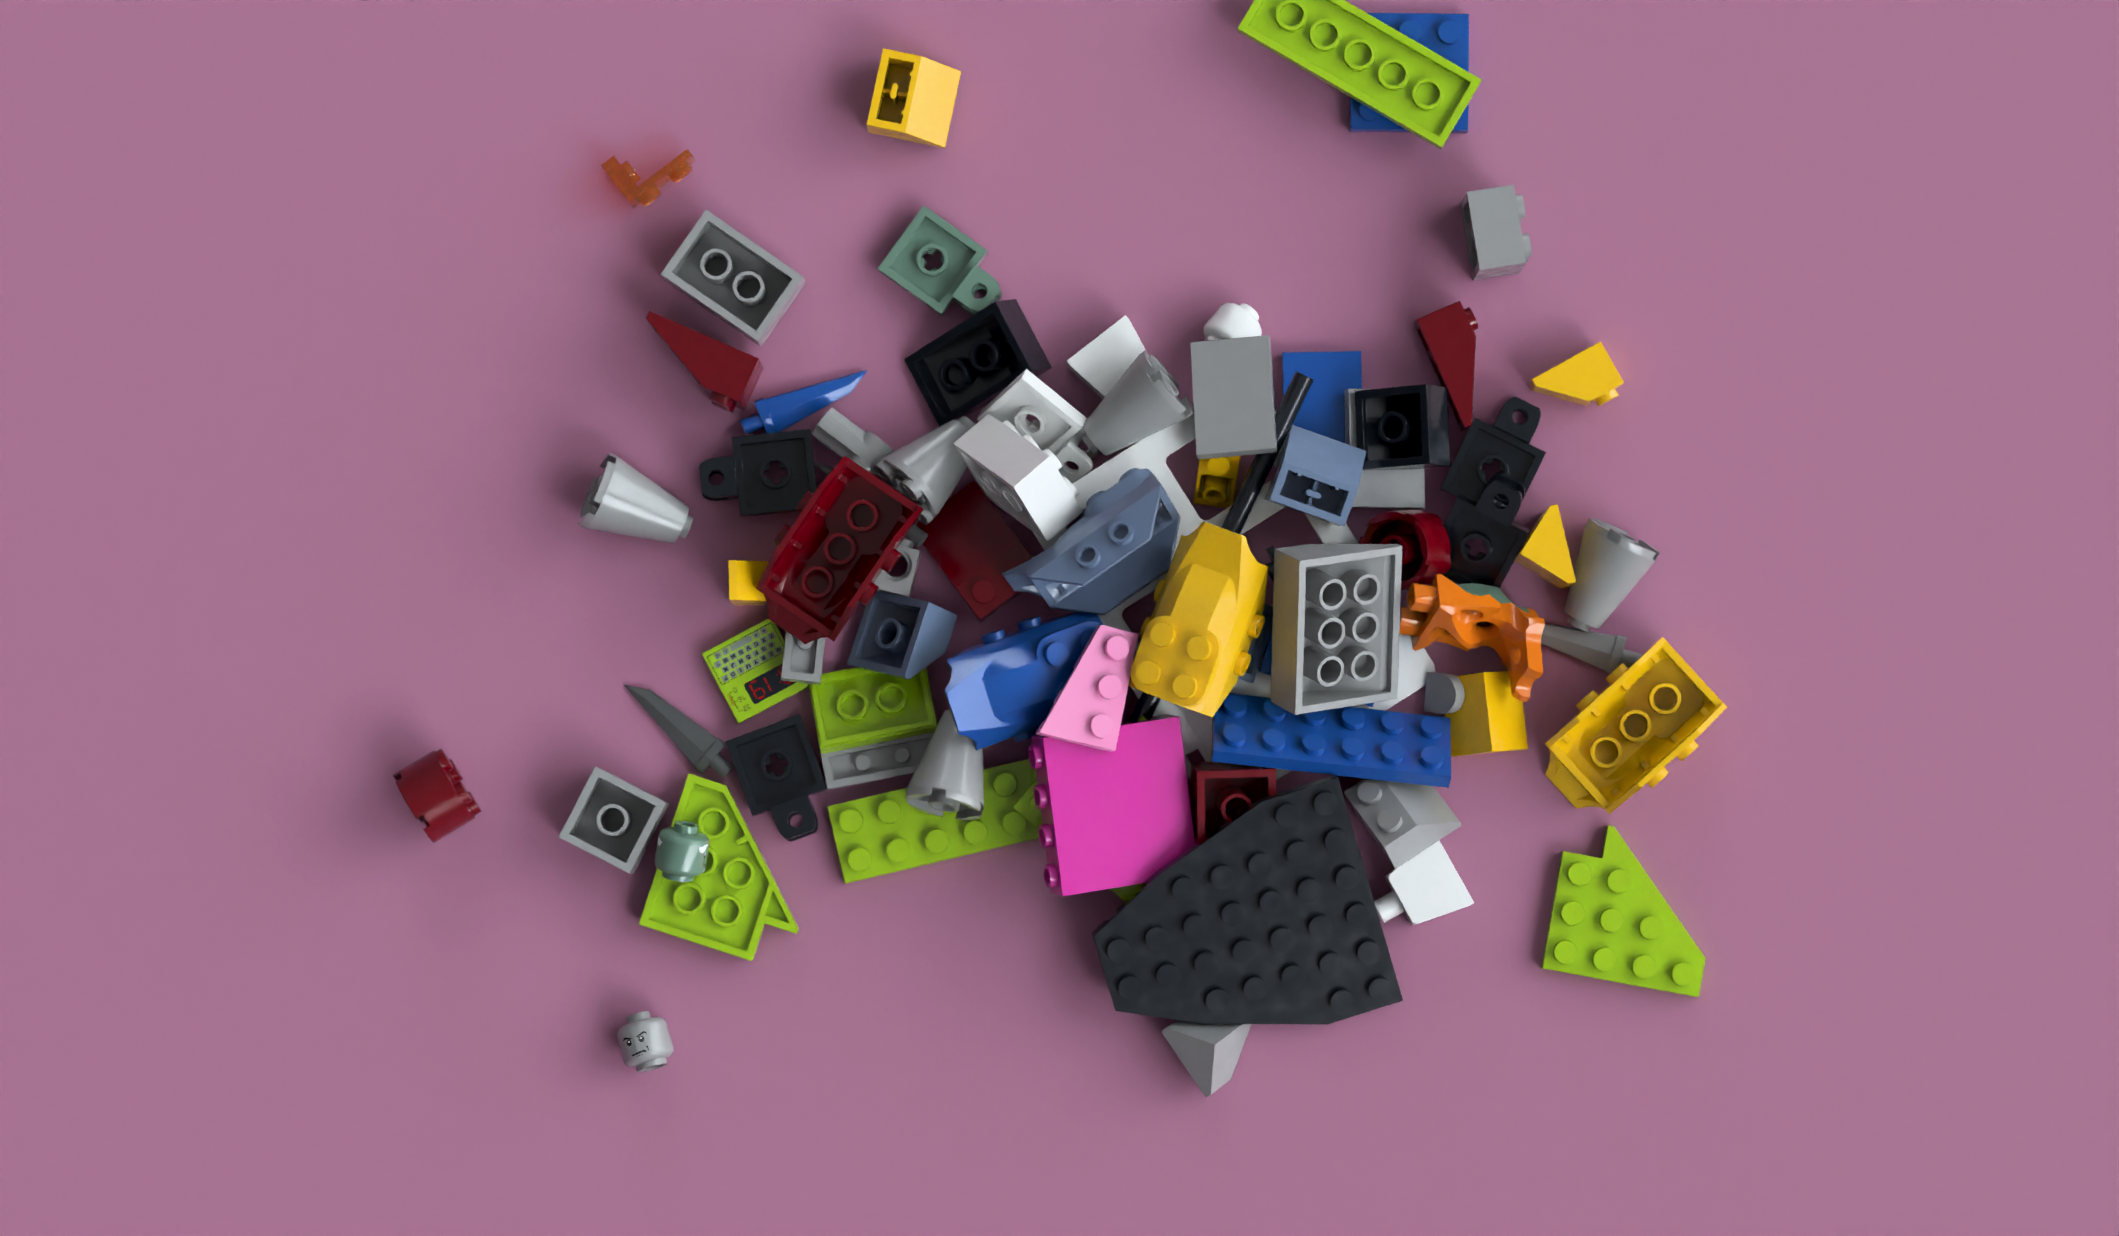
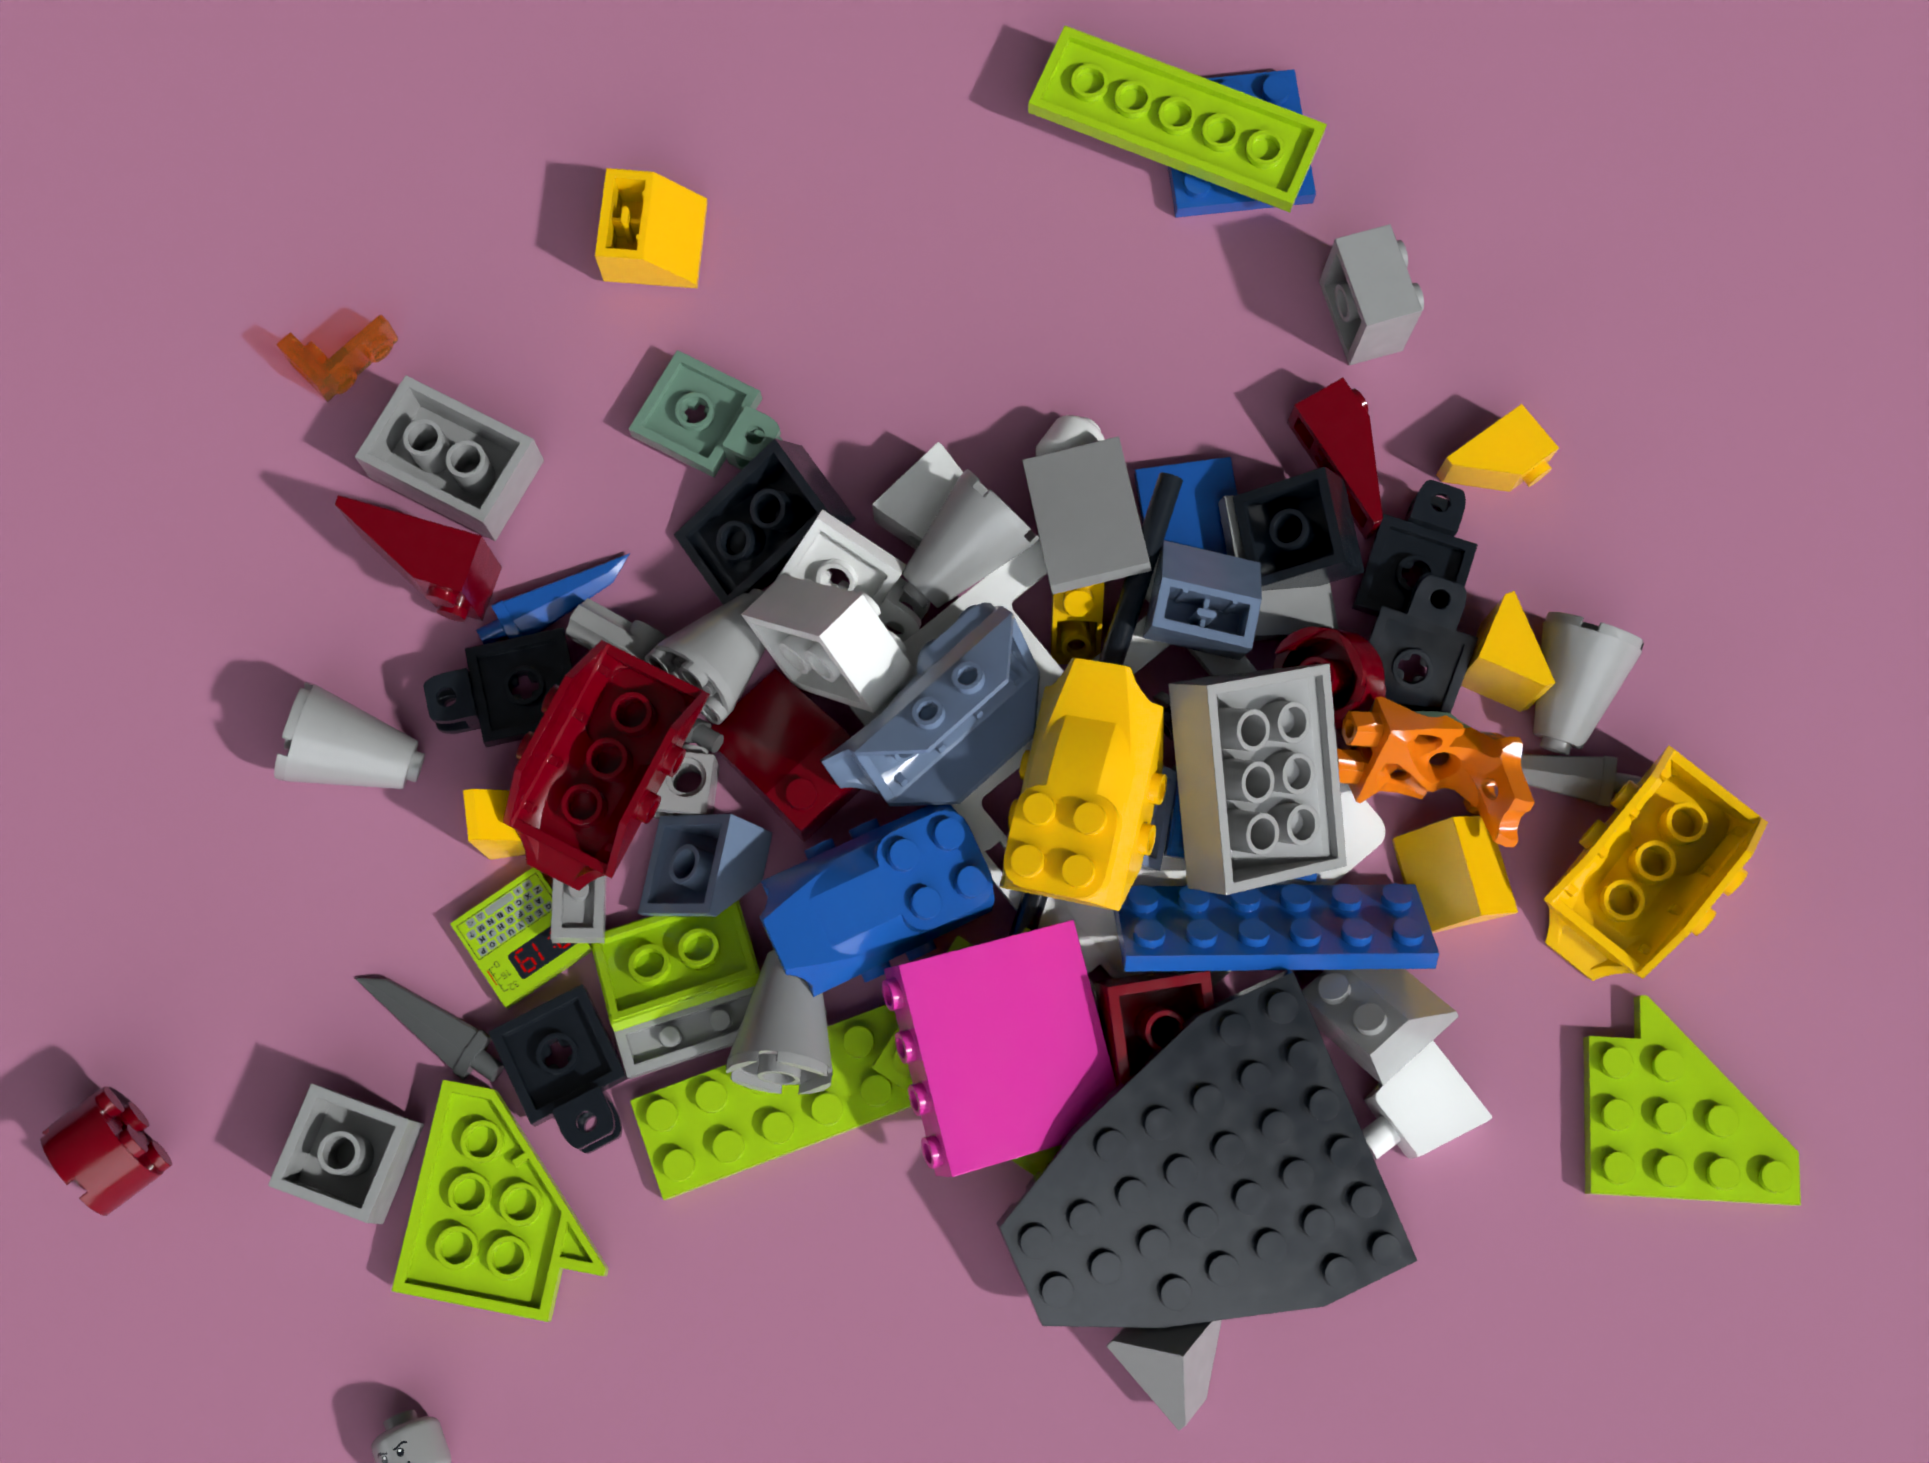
camera: 10 degrees left, 10 degrees down
(681, 851) = (437, 1184): sand green head -> none
(1095, 694) = (960, 901): bright pink wing -> none
(1443, 693) = (1402, 854): light grey tile -> none

